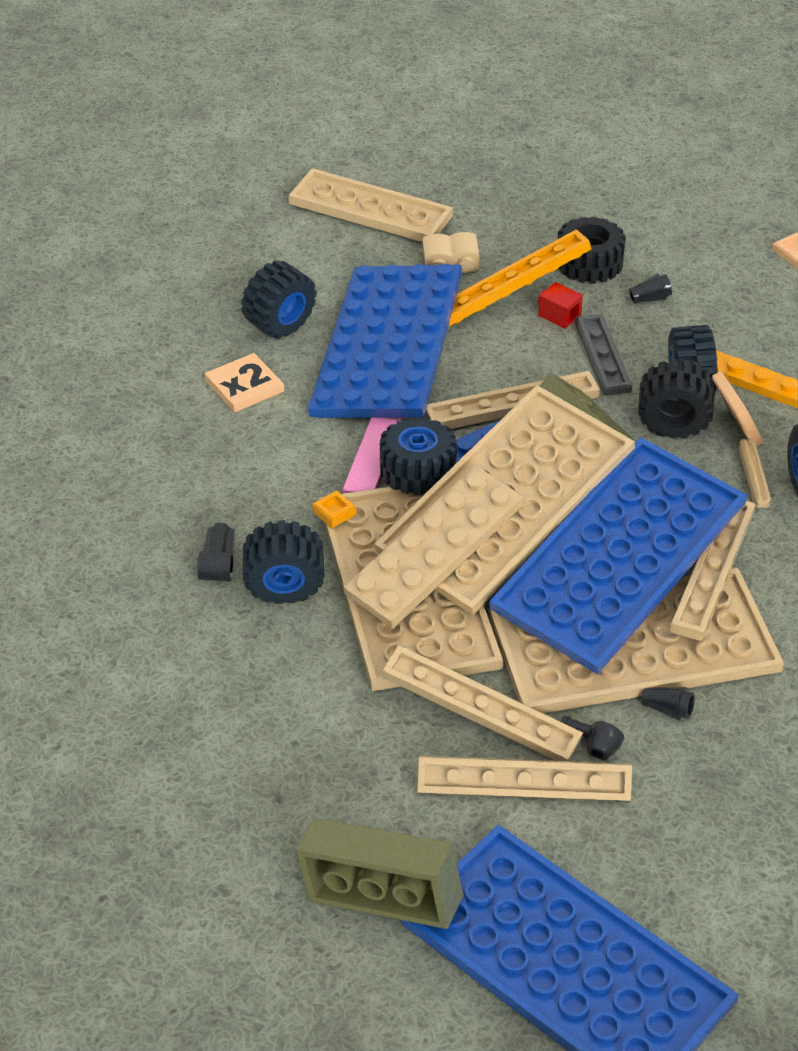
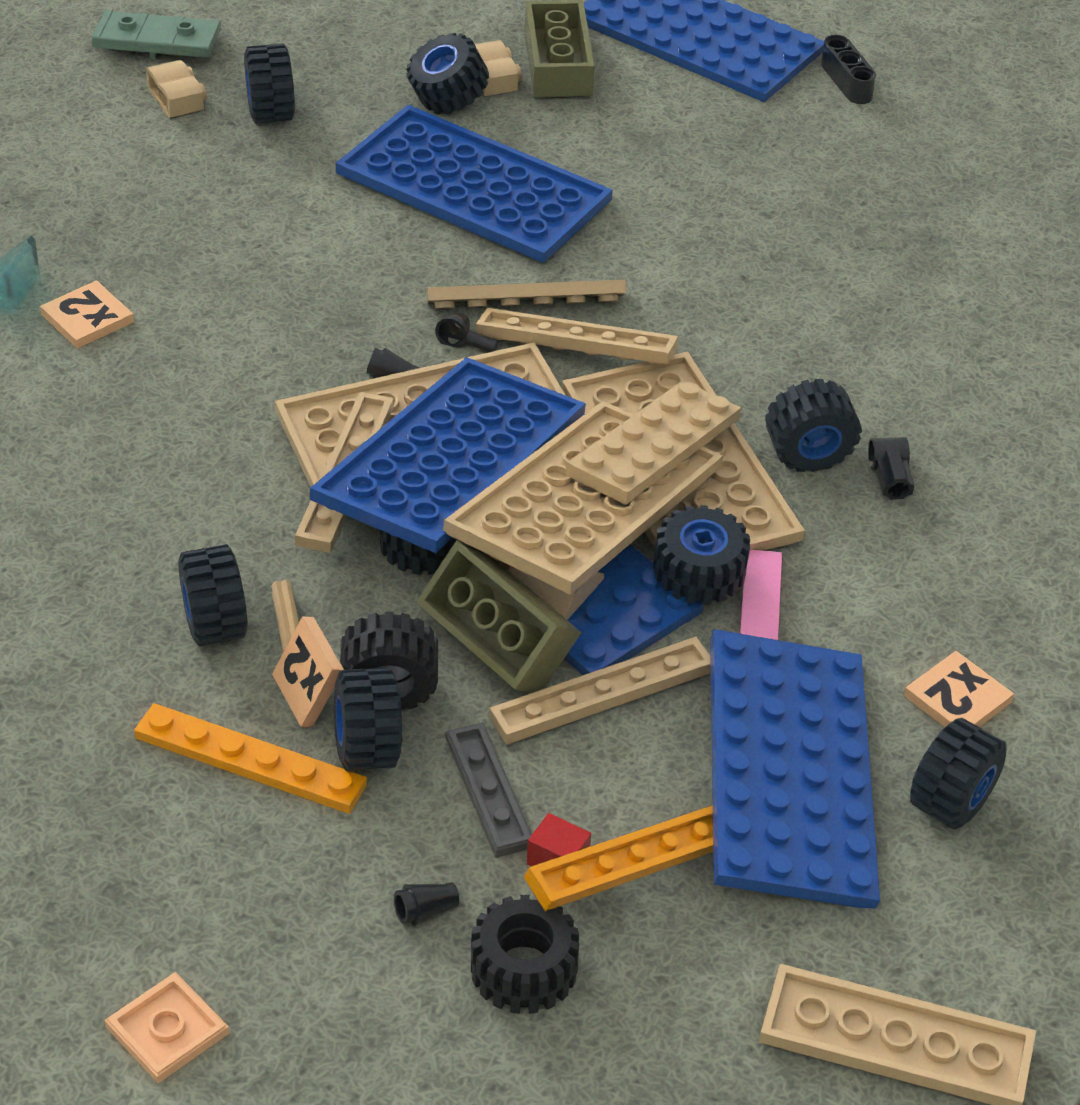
camera: 170 degrees right, 0 degrees up
(334, 509) = (781, 508): light orange tile -> none
(380, 872) = (636, 182): olive brick -> none
(453, 250) = (741, 936): tan brick -> none

